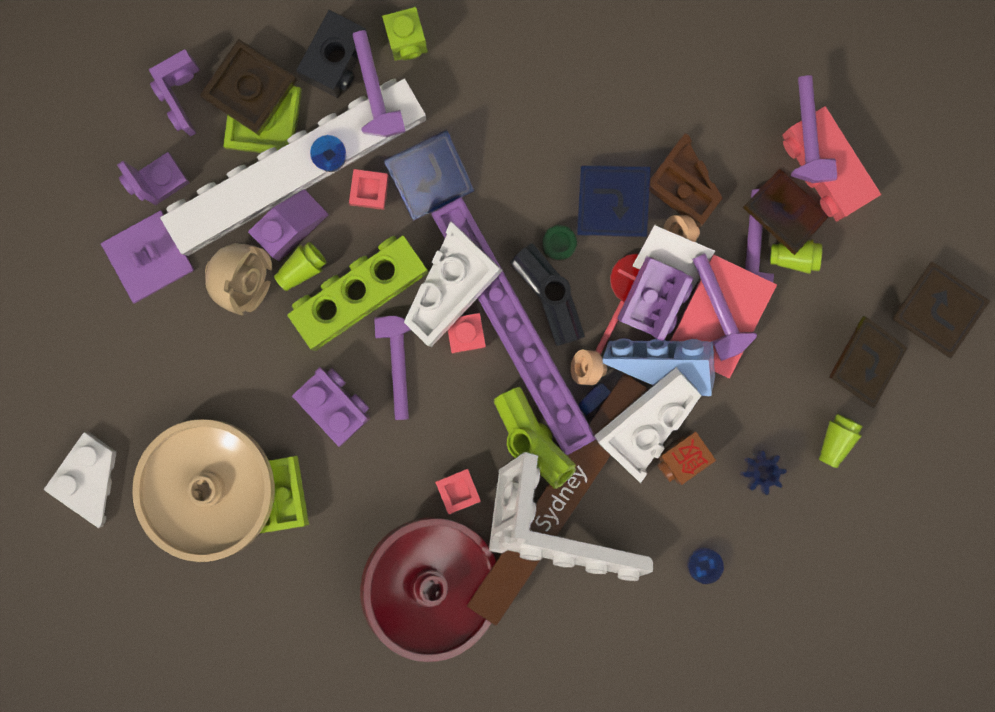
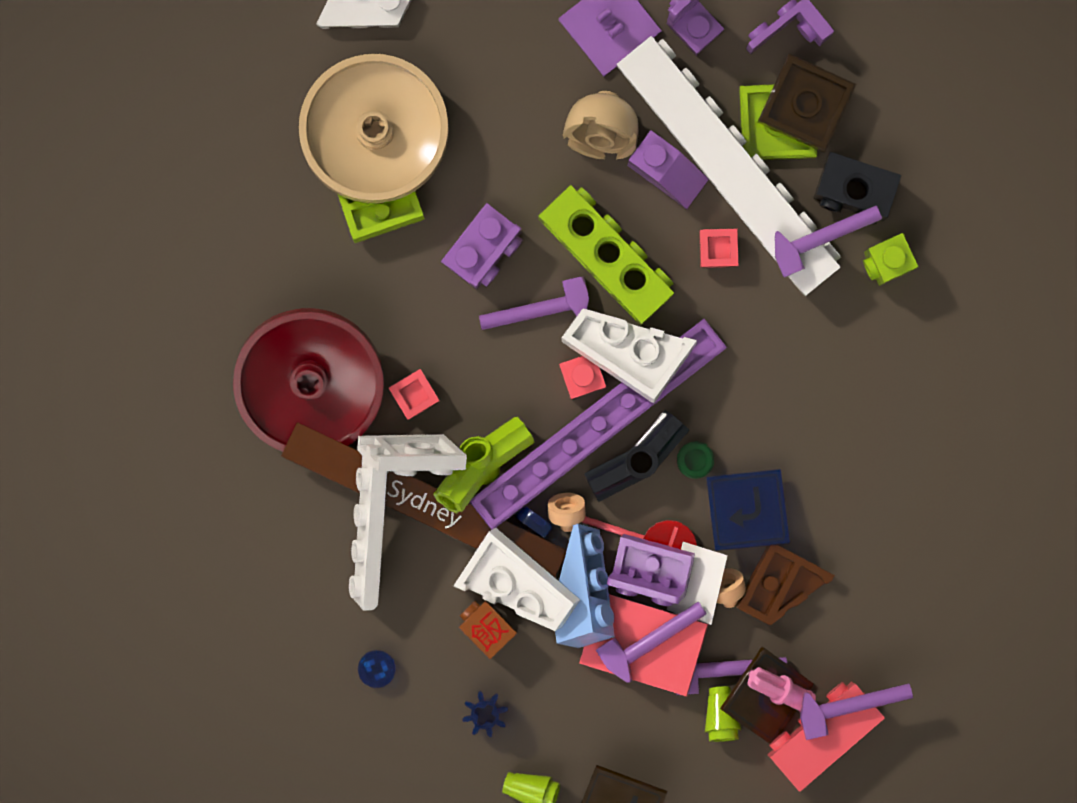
camera: 80 degrees right, 0 degrees up
(300, 266) = (625, 190): lime cone -> none
(328, 153) = (746, 200): clear blue tile -> none
(429, 175) = (743, 310): clear blue piece -> none
(783, 198) = (778, 688): none -> bright pink axle

